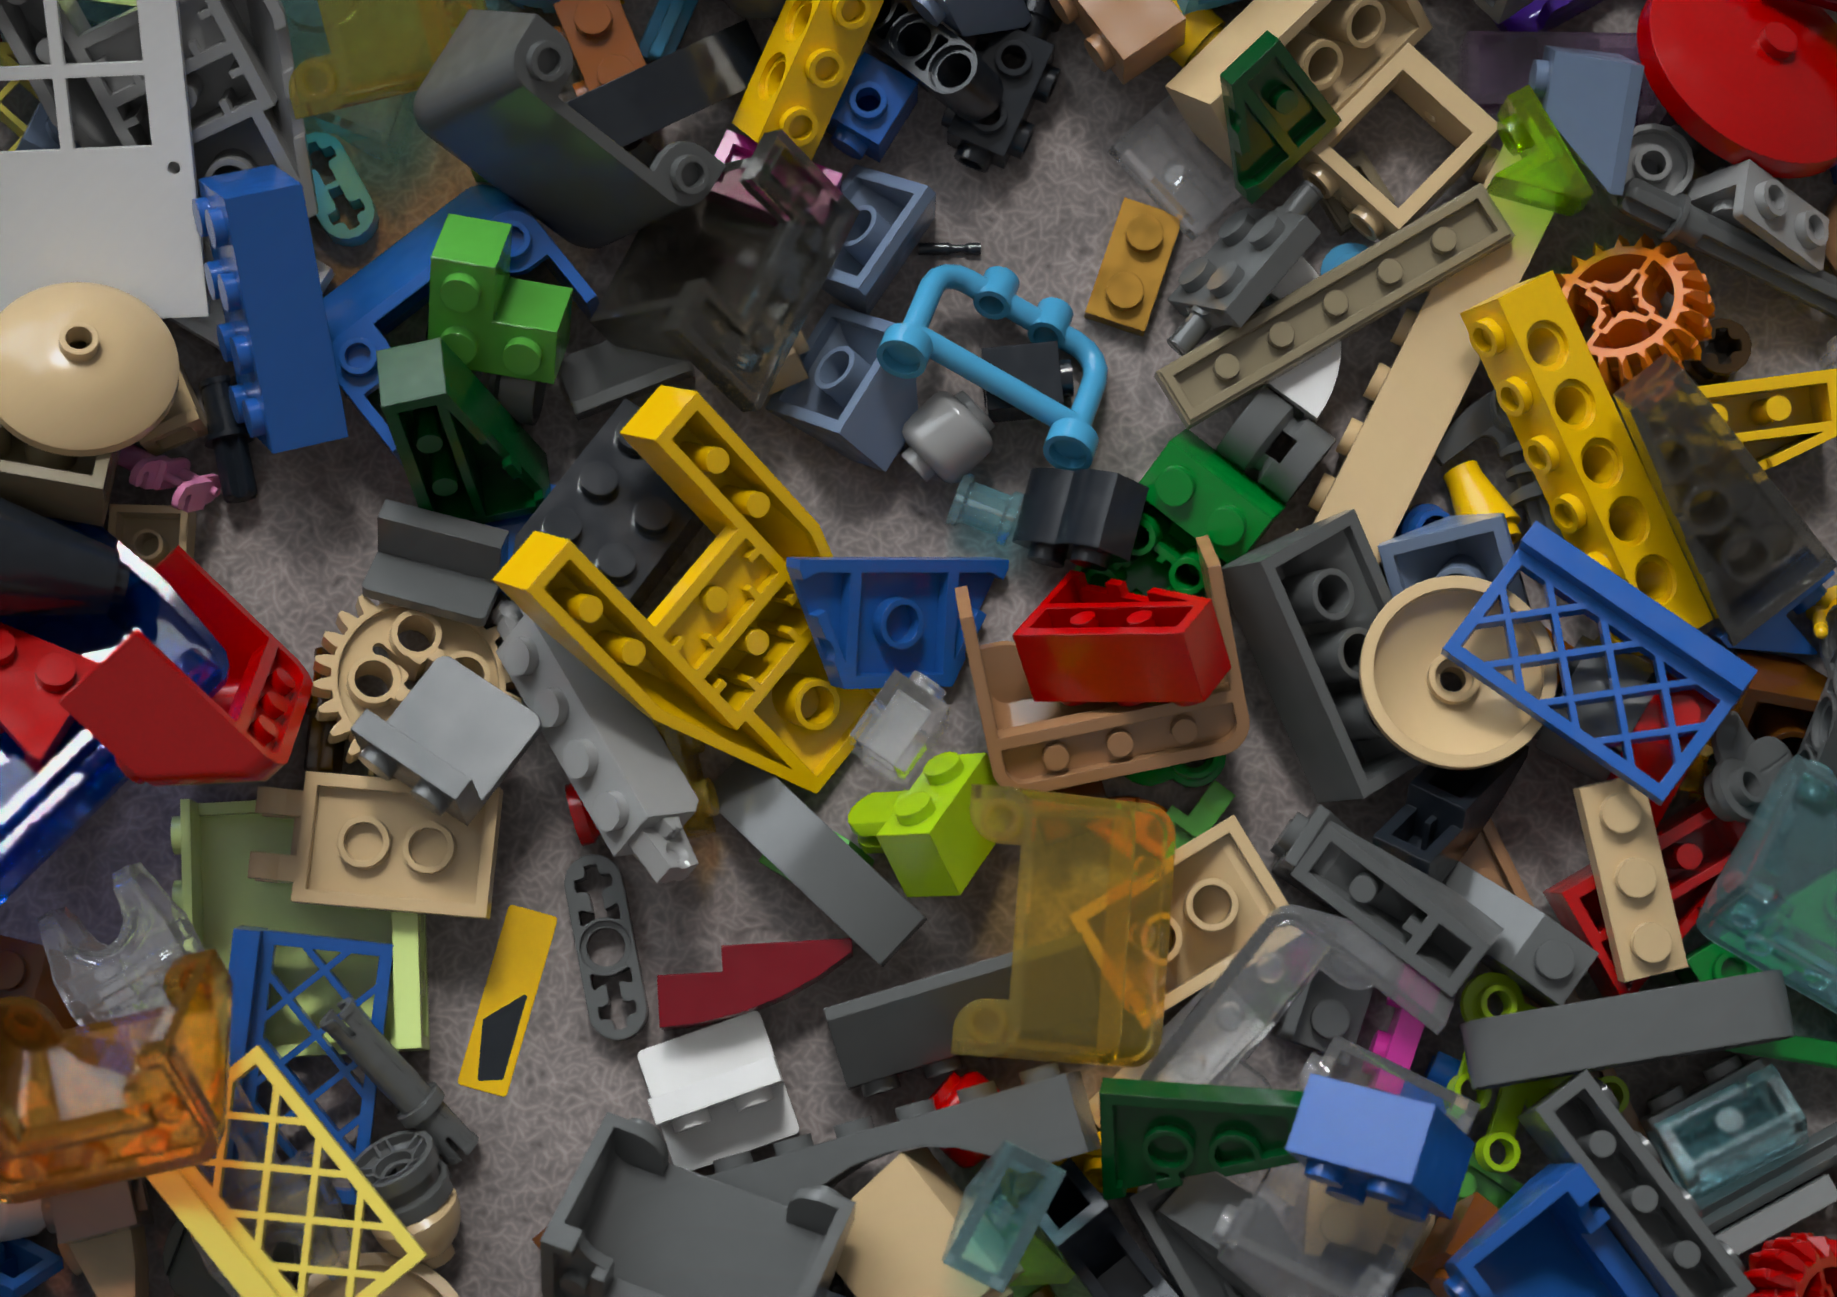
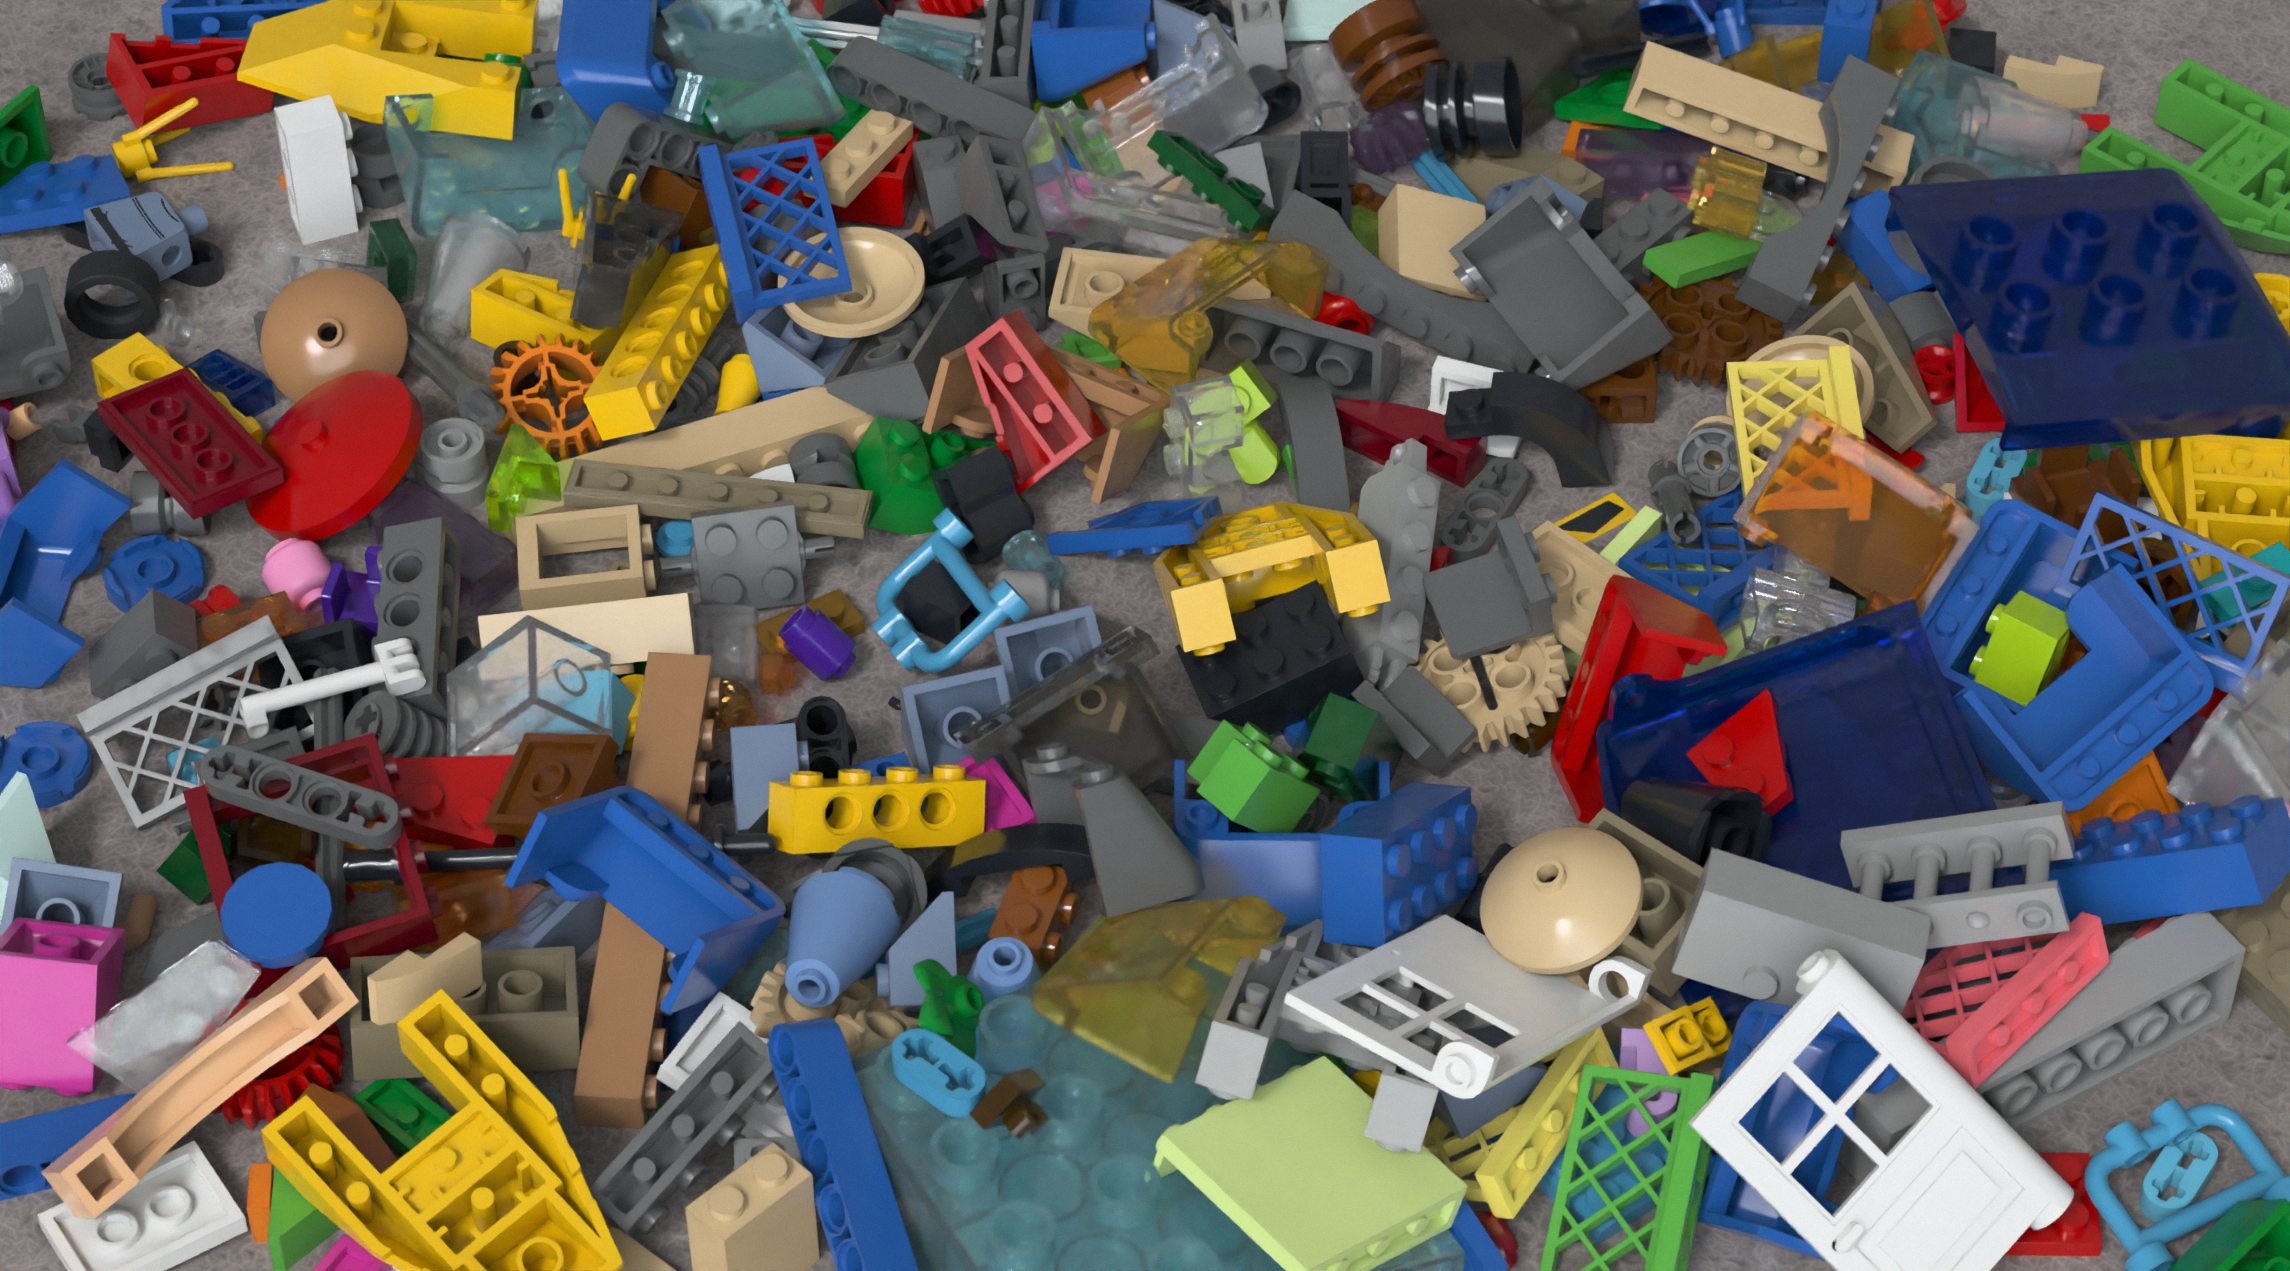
camera: 140 degrees left, 35 degrees down
(615, 1061) = (1542, 413): none -> black arch
(1001, 1214) = (1373, 200): clear light blue slope -> none
(1089, 228) = (818, 643): none -> dark purple brick
(1094, 93) = (734, 697): none -> clear orange cone
(1108, 180) = (775, 673): none -> clear orange plate
(1270, 115) = (644, 578): dark green wing -> none
(1380, 1148) = (1128, 99): brick -> none
(1593, 108) = (456, 462): sand blue slope -> none
(1766, 209) = (413, 369): light grey bracket -> none

